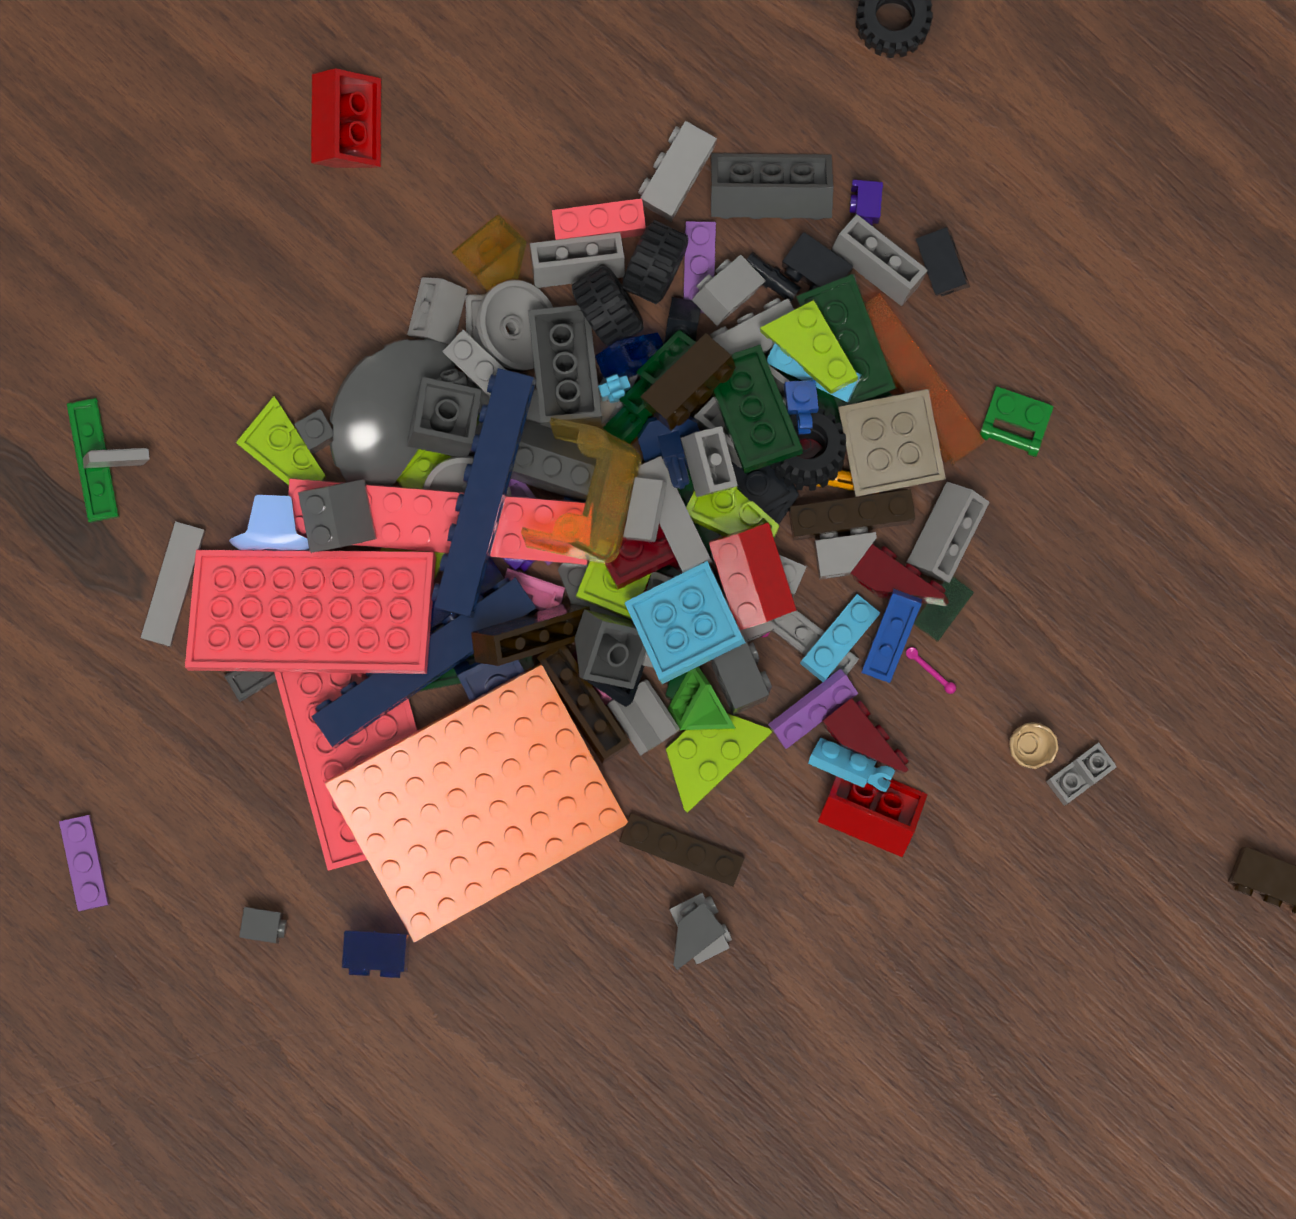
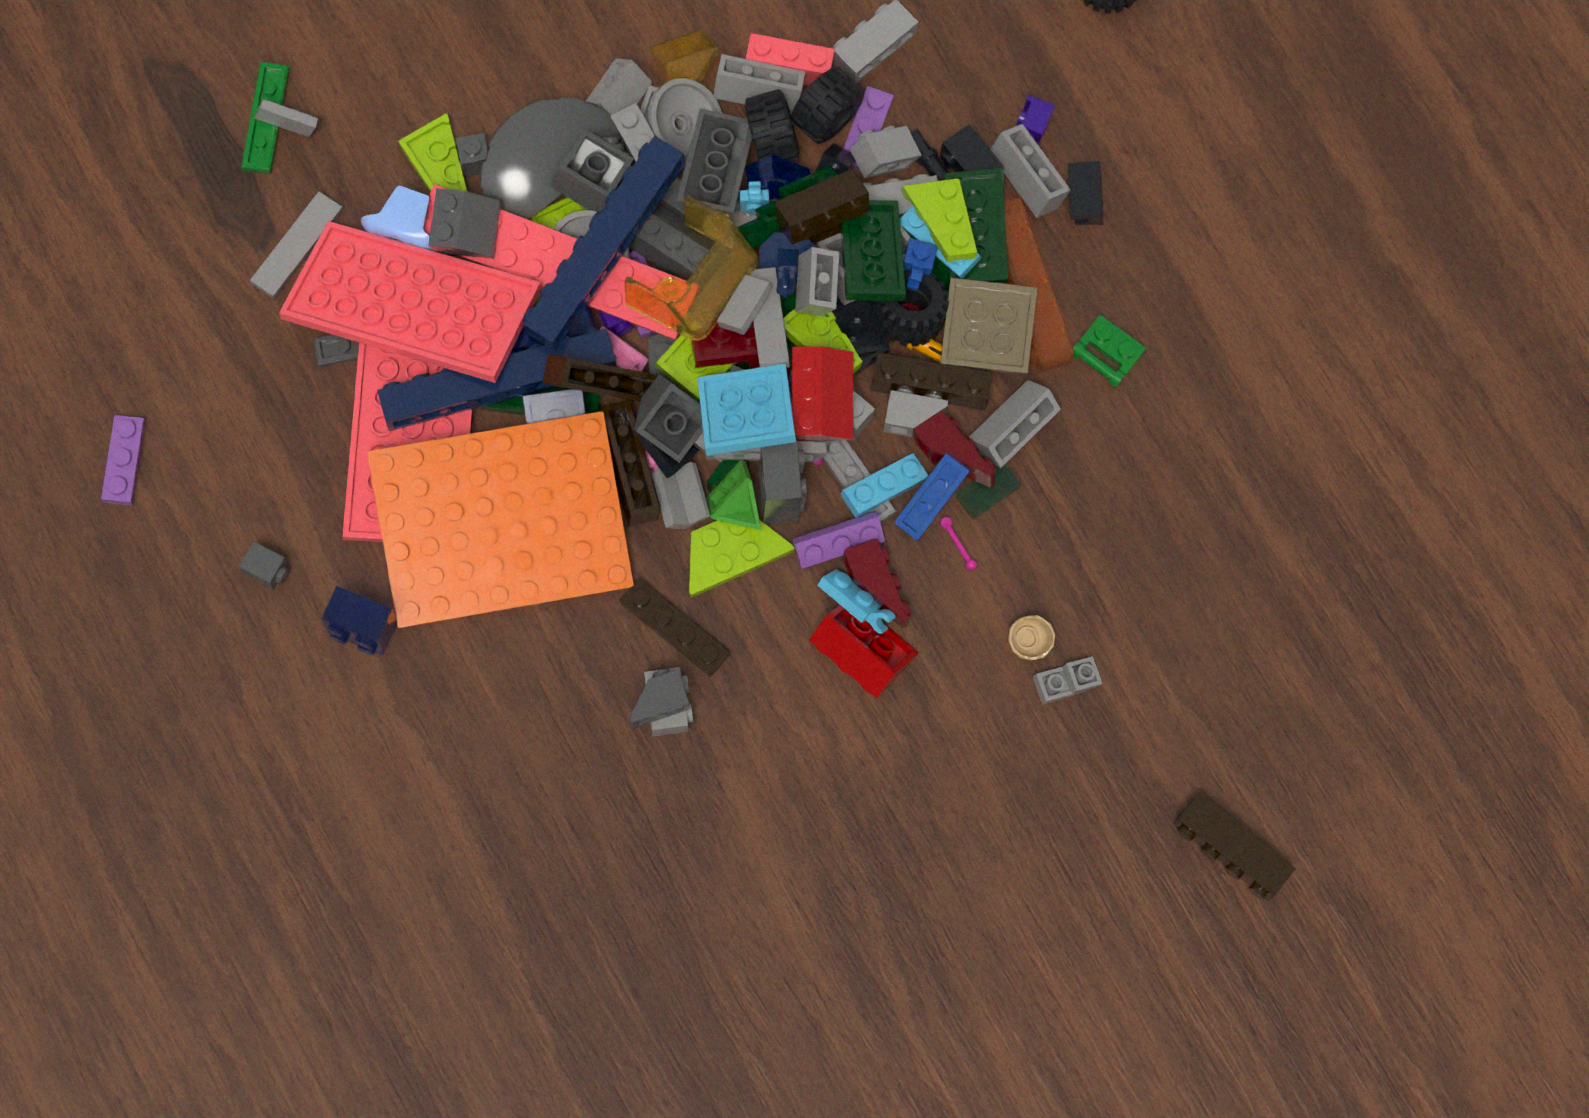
camera: 10 degrees right, 10 degrees down
(771, 186) = (953, 81): dark grey slope -> none

